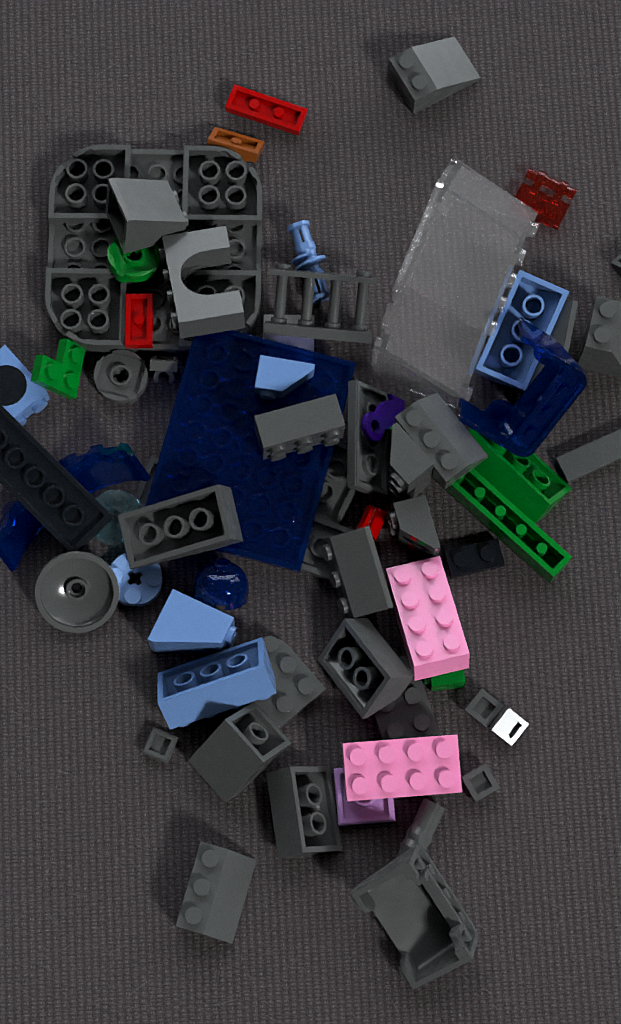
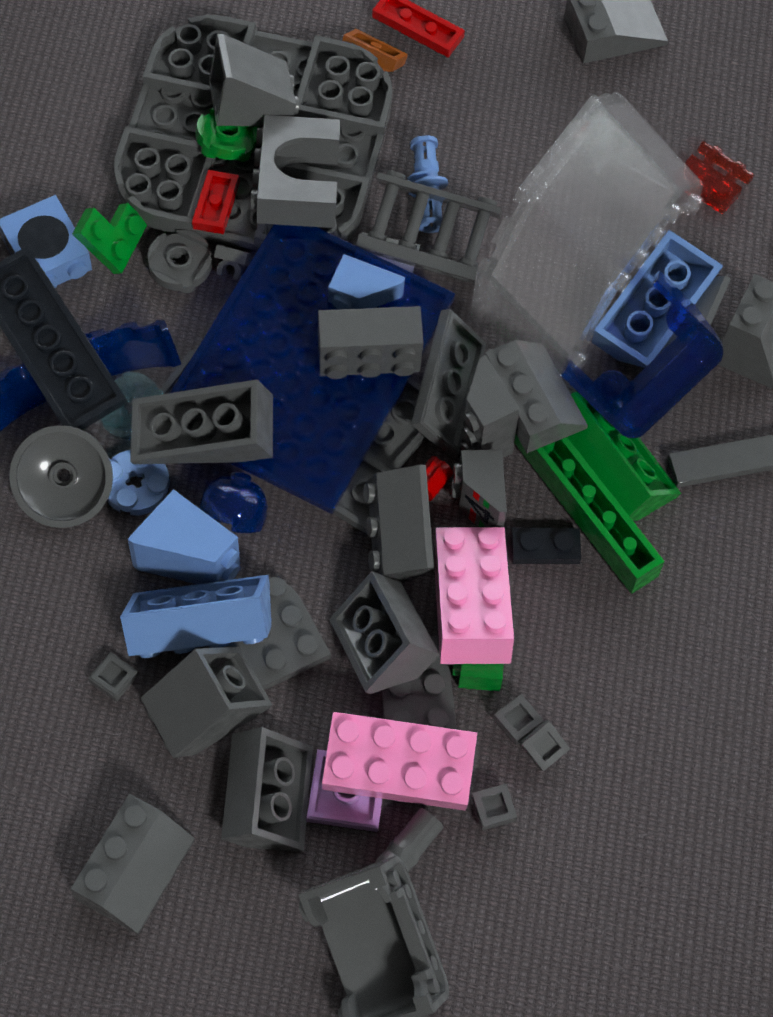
camera: 10 degrees right, 10 degrees down
(382, 417) = (468, 362): dark purple brick -> none

